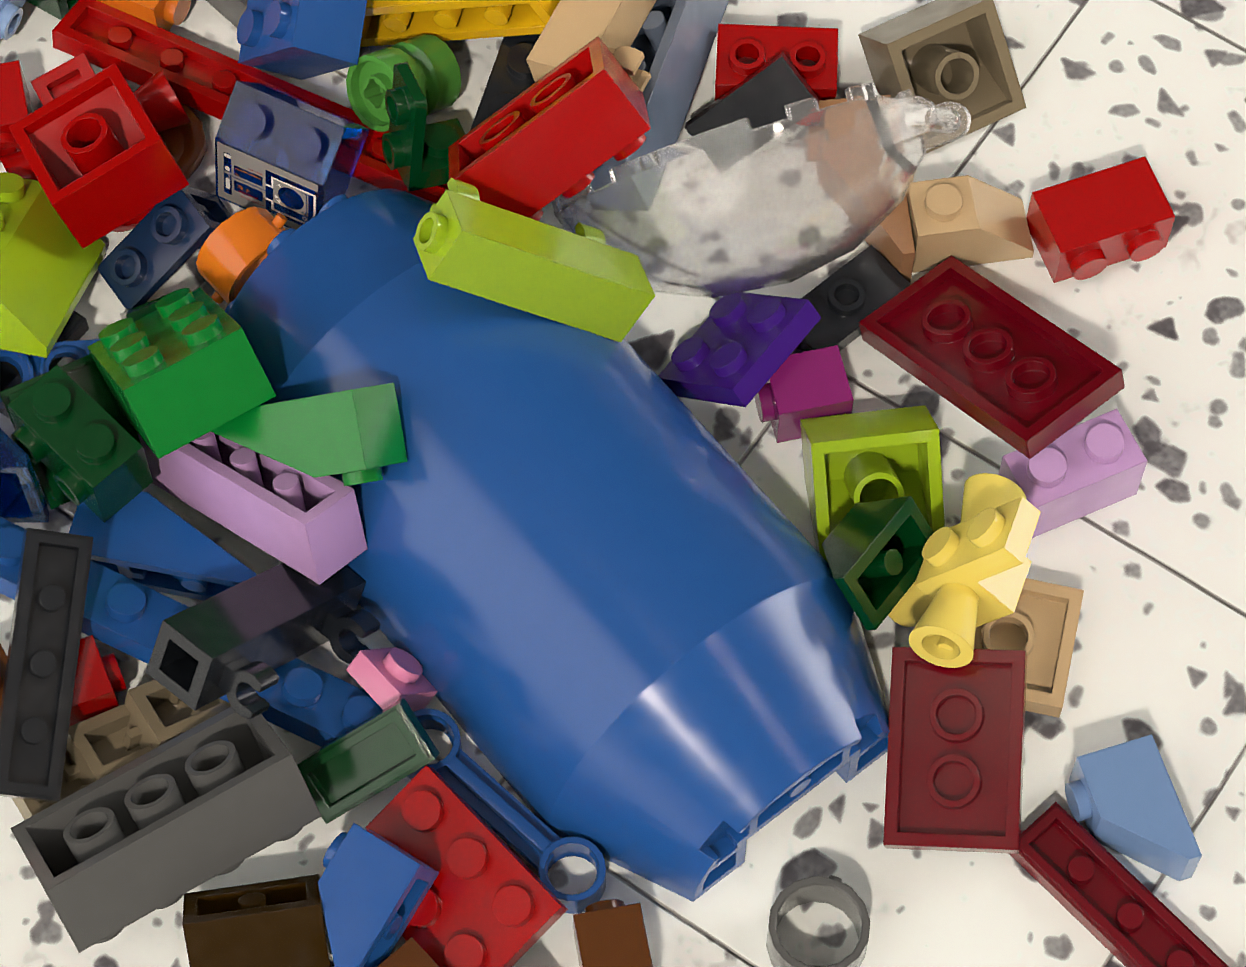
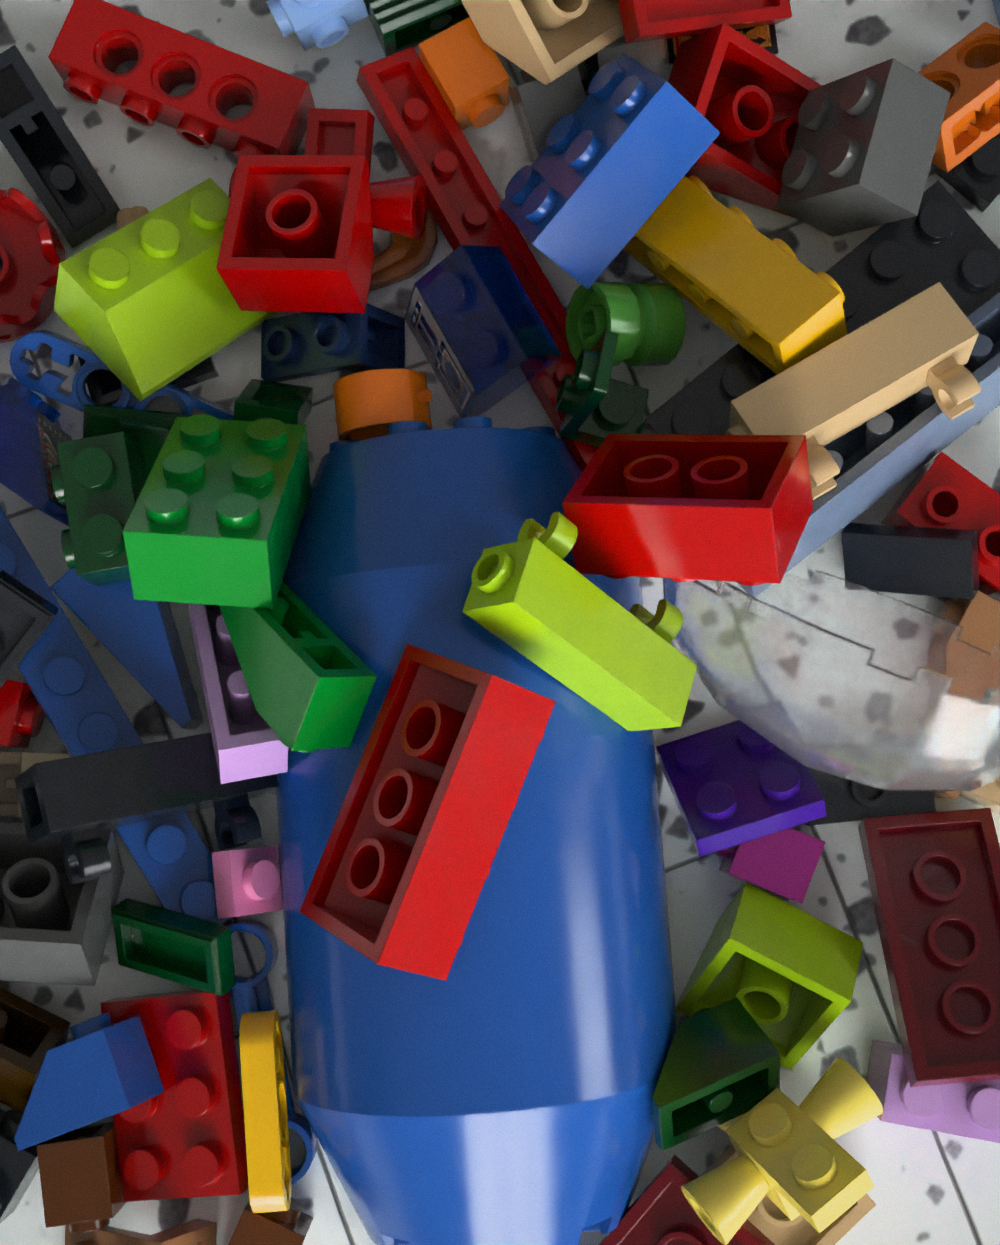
camera: 35 degrees right, 20 degrees up
(500, 441) = (426, 812): none -> red slope
(536, 826) = (265, 1111): none -> yellow beam

